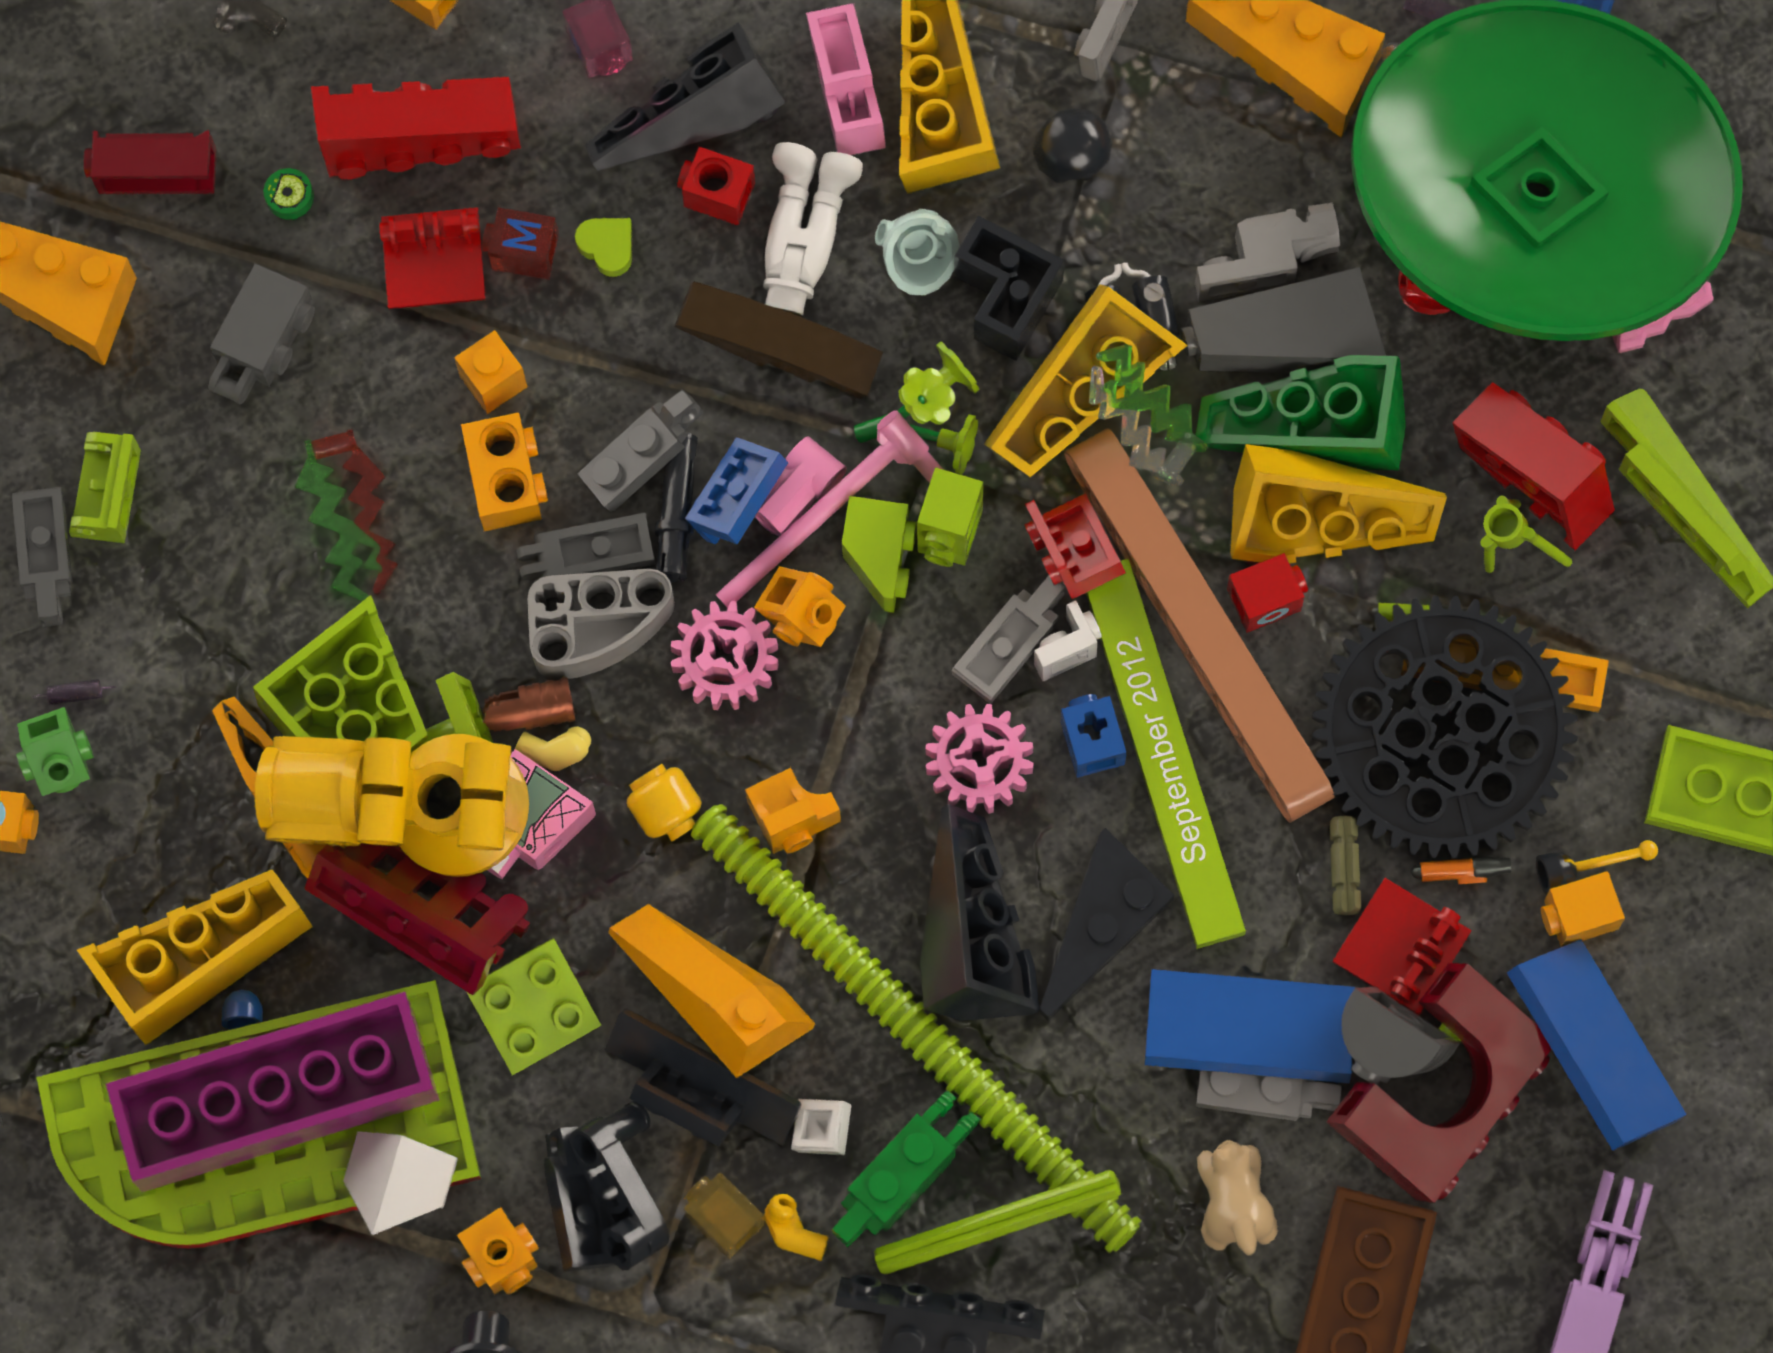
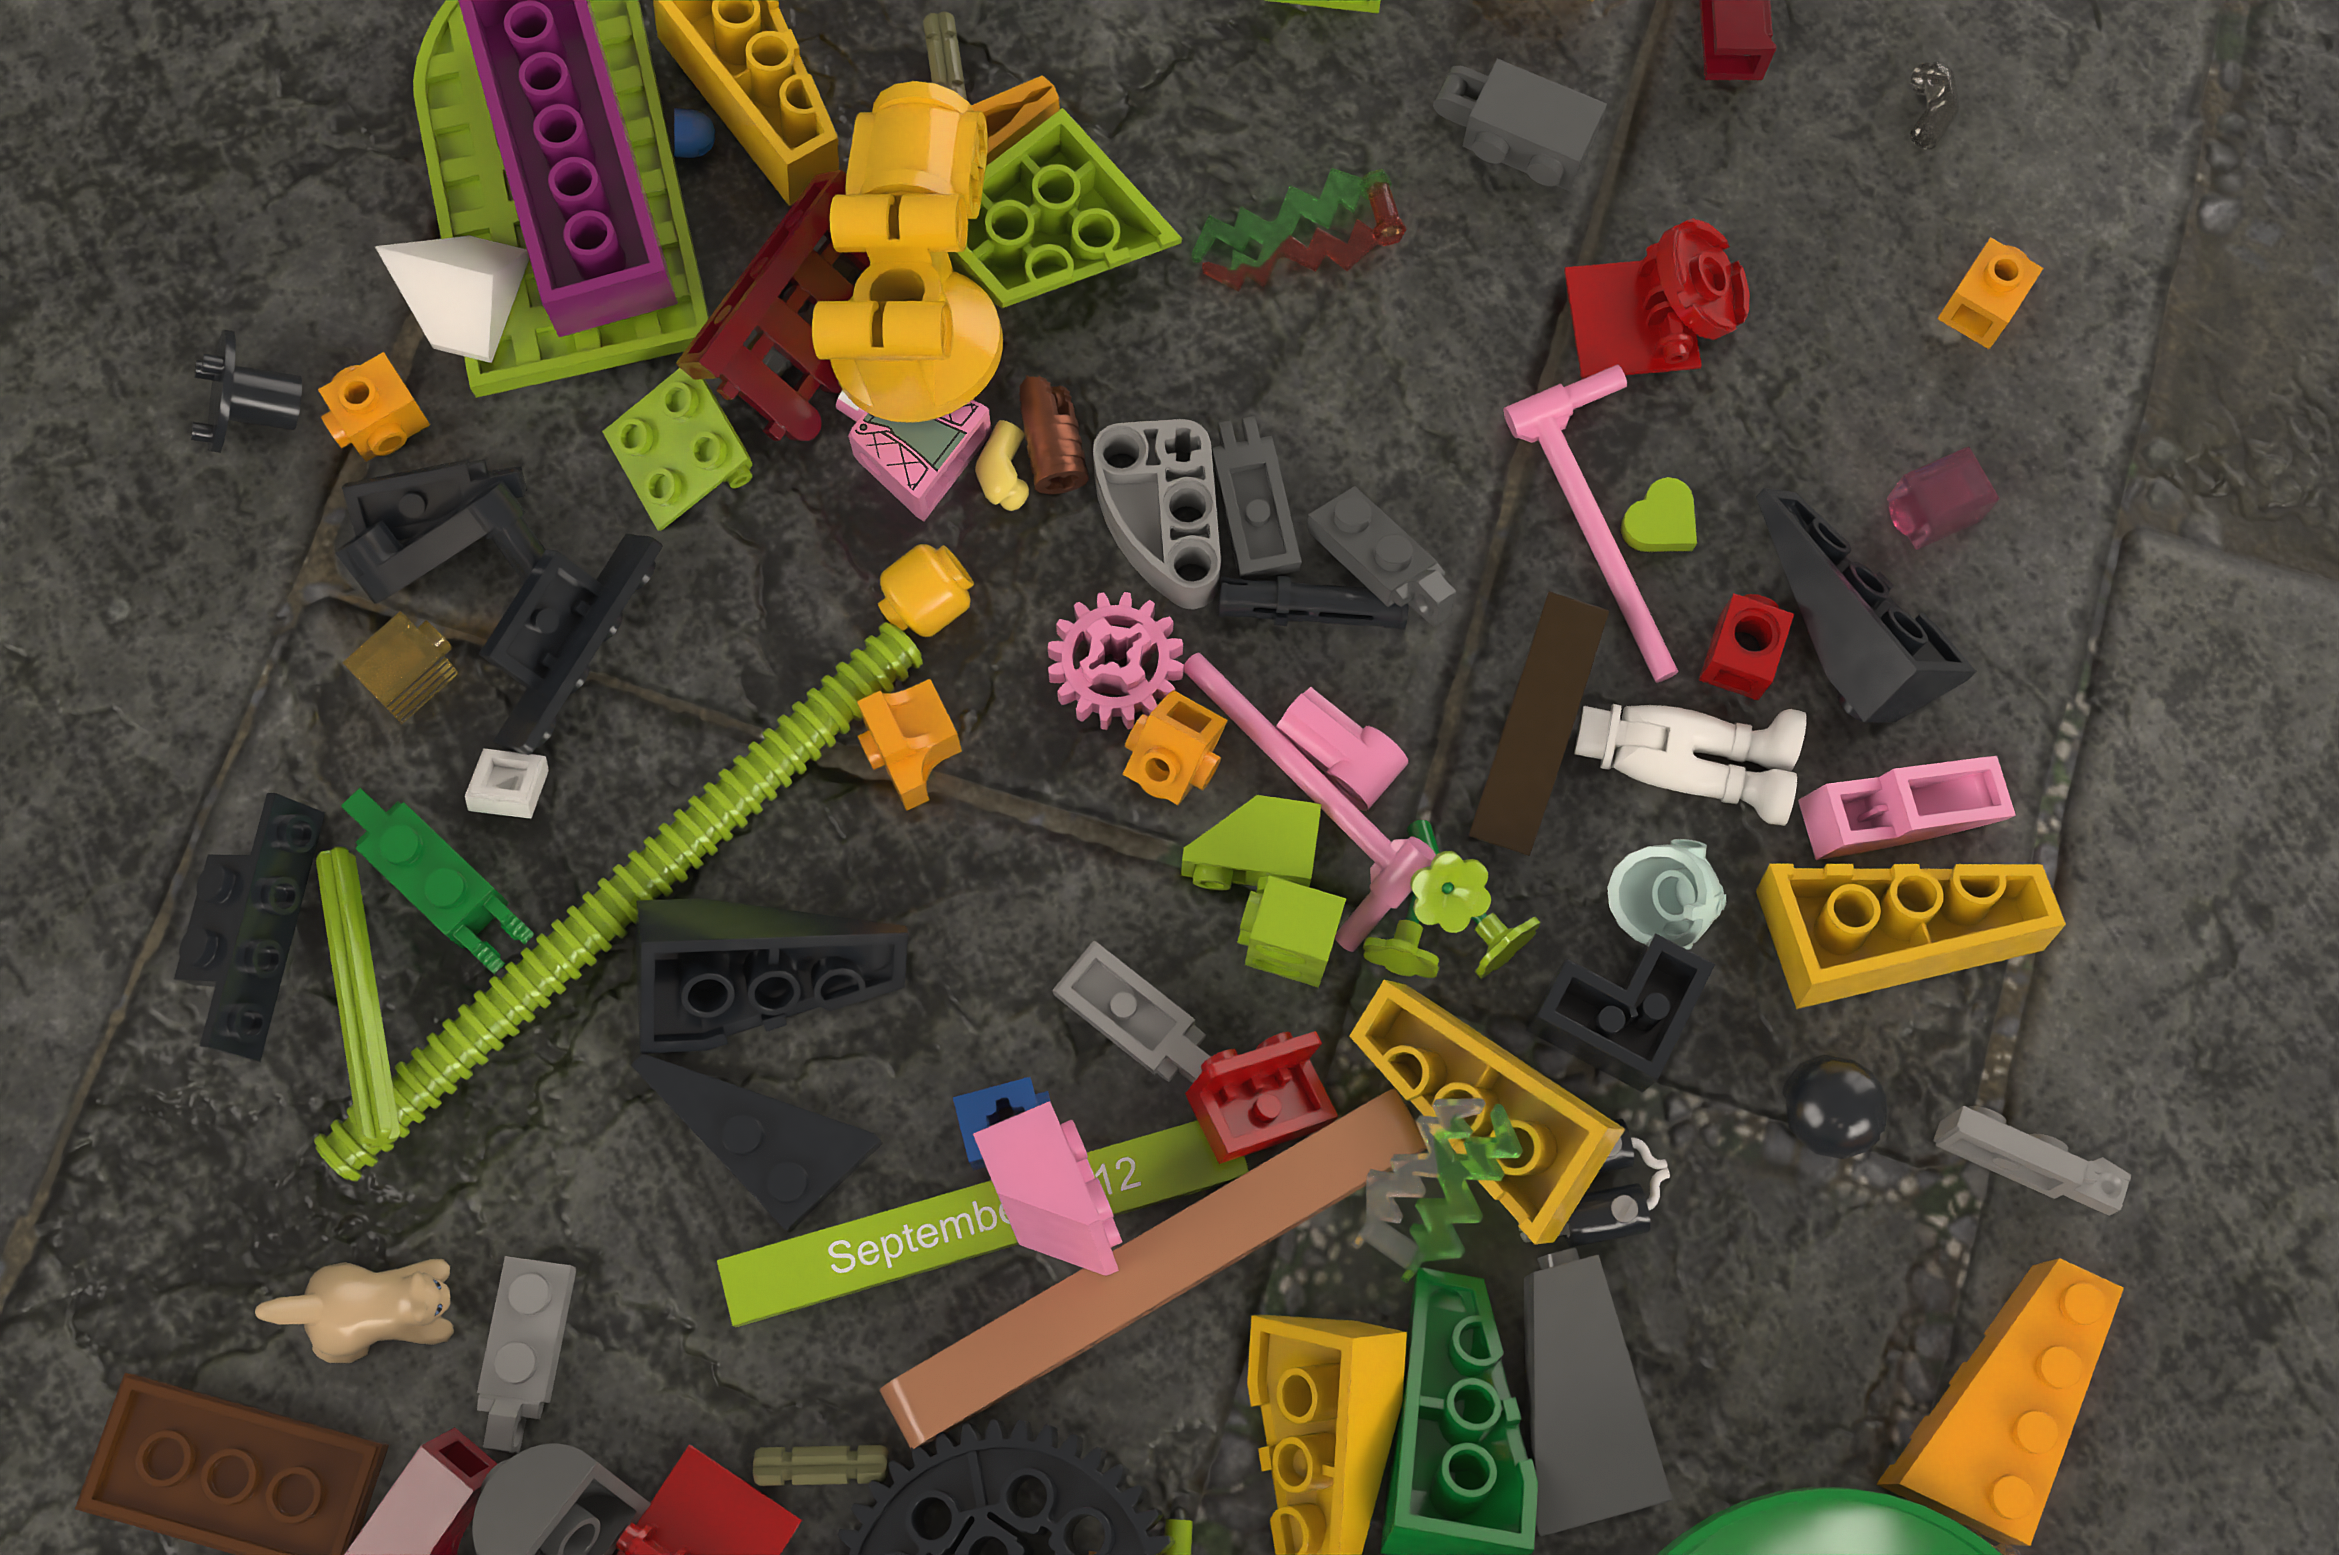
camera: 85 degrees right, 0 degrees up
(185, 801) = (944, 52): none -> olive axle
(288, 193) = (1707, 155): tile -> none
(410, 199) = (1700, 280): none -> red tile
(414, 125) = (1802, 279): red wedge -> none
(462, 708) = (1053, 353): lime tile -> none
(491, 372) = (1481, 378): light orange brick -> none
(494, 473) = (1347, 381): light orange brick -> none
(521, 243) = (1655, 414): clear red brick -> none
(522, 330) = (1542, 419): none -> bright pink bar
(719, 996) = (677, 662): light orange wedge -> none
(736, 491) = (1326, 665): blue bracket -> none
(788, 1230) = (381, 748): yellow arm -> none
(961, 765) = (948, 980): bright pink gear -> none
(1063, 651) = (1119, 1084): white bracket -> none
(1153, 684) = (1050, 1189): none -> bright pink slope
(1247, 1026) = (600, 1325): blue tile -> none
(1267, 592) = (1202, 1363): red brick -> none
(1269, 252) = (1695, 1371): light grey plate -> none

